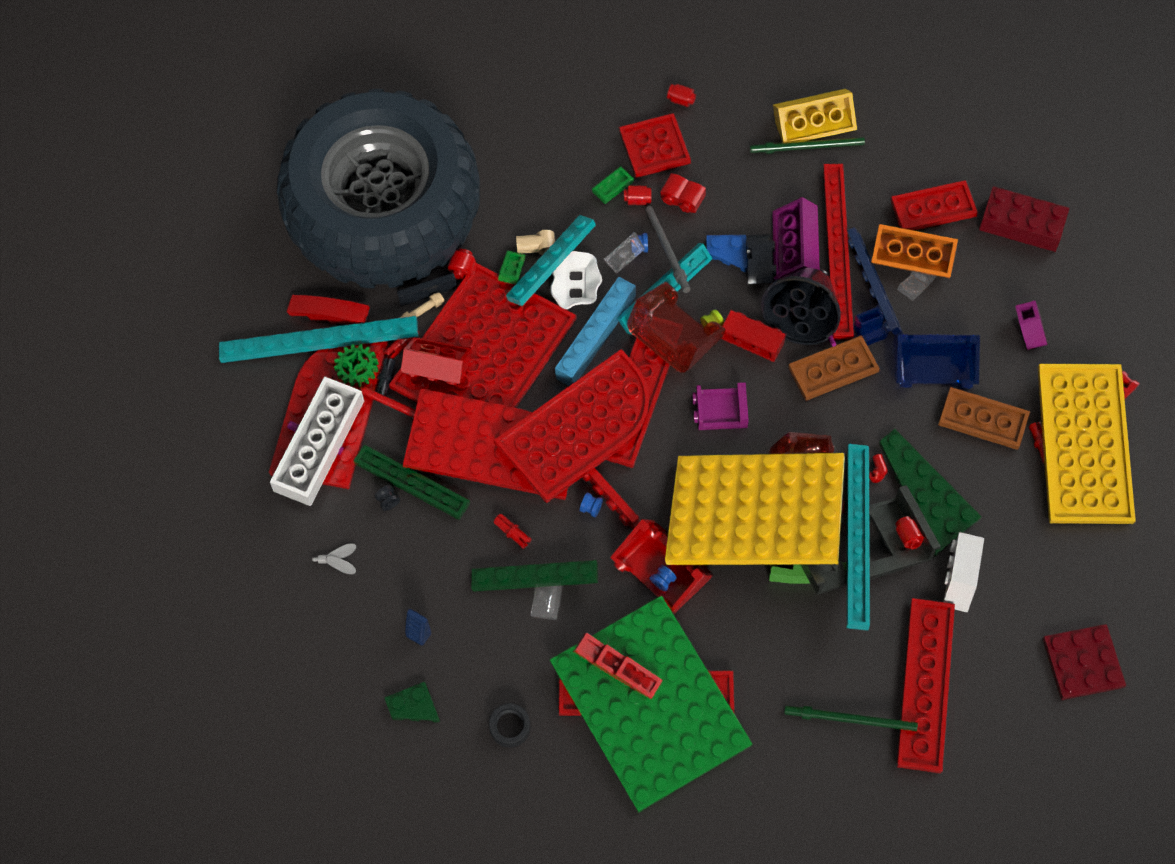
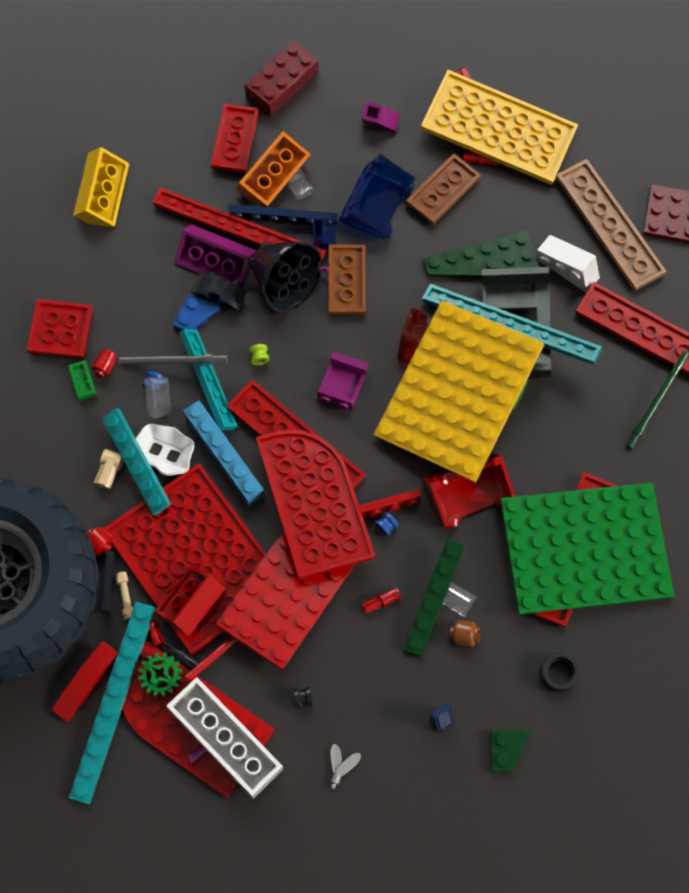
camera: 70 degrees left, 5 degrees up
(412, 482) = (296, 670): dark green plate -> none
(510, 620) = (465, 633): none -> dark orange head
(511, 267) = (123, 499): green plate -> none
(618, 666) = (551, 558): red slope -> none
(663, 578) = (480, 492): blue wheel -> none
(670, 330) = (258, 388): clear red windscreen -> none
(681, 95) = (21, 285): red brick -> none
(683, 193) = (122, 325): red brick -> none
(753, 335) = (288, 328): red brick -> none
(769, 147) = (112, 237): dark green bar -> none
(880, 469) = (452, 284): red arm -> none
(909, 532) = (524, 285): red brick -> none
(1033, 599) = (611, 225): none -> medium nougat plate

